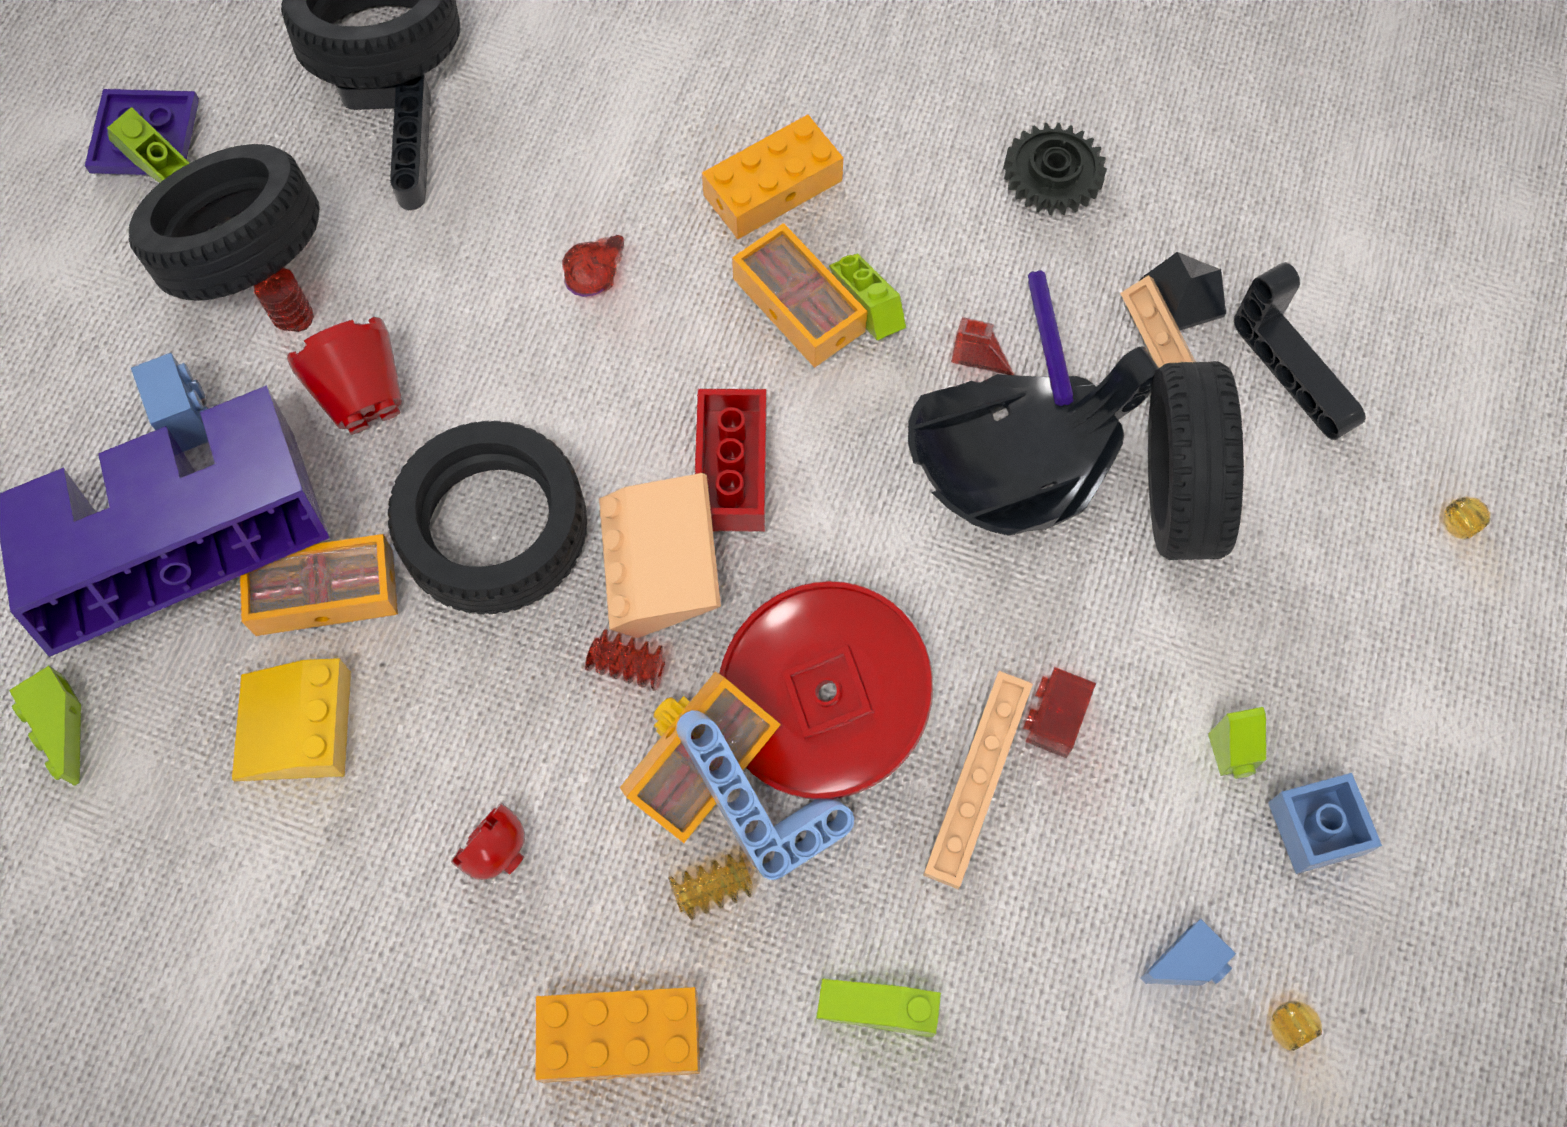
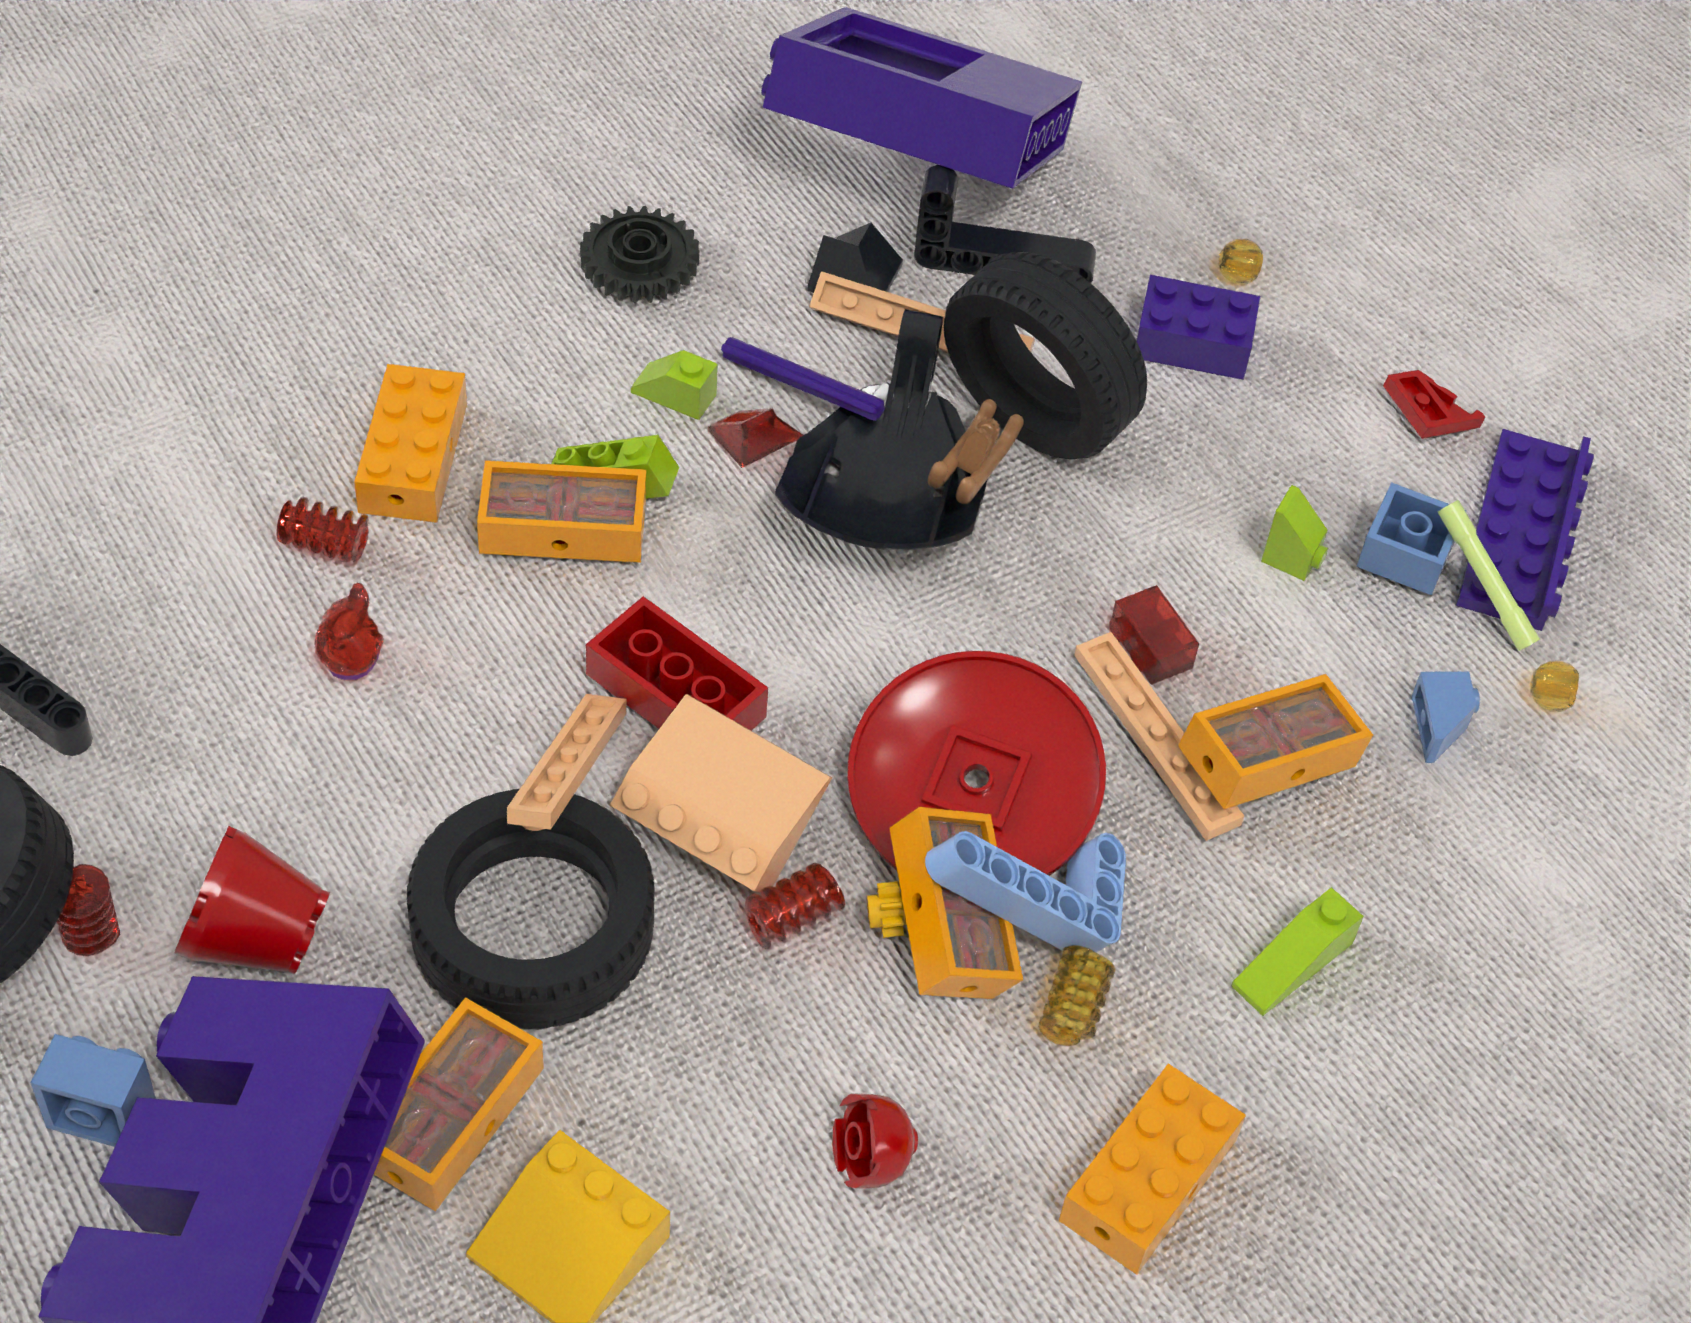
camera: 55 degrees left, 15 degrees down
(593, 449) = (566, 762): none -> light nougat plate
(661, 188) = (322, 531): none -> clear red piece
(973, 275) = (679, 383): none -> lime slope
(1036, 862) = (1274, 740): none -> brick
(1086, 486) = (977, 452): none -> medium nougat piece
(1329, 945) = (1510, 613): none -> yellowish green piece
(1356, 263) = (921, 95): none -> dark purple panel
(1368, 535) = (1197, 326): none -> dark purple brick
(1432, 897) = (1529, 522): none -> dark purple bracket
(1475, 745) = (1429, 406): none -> red wing

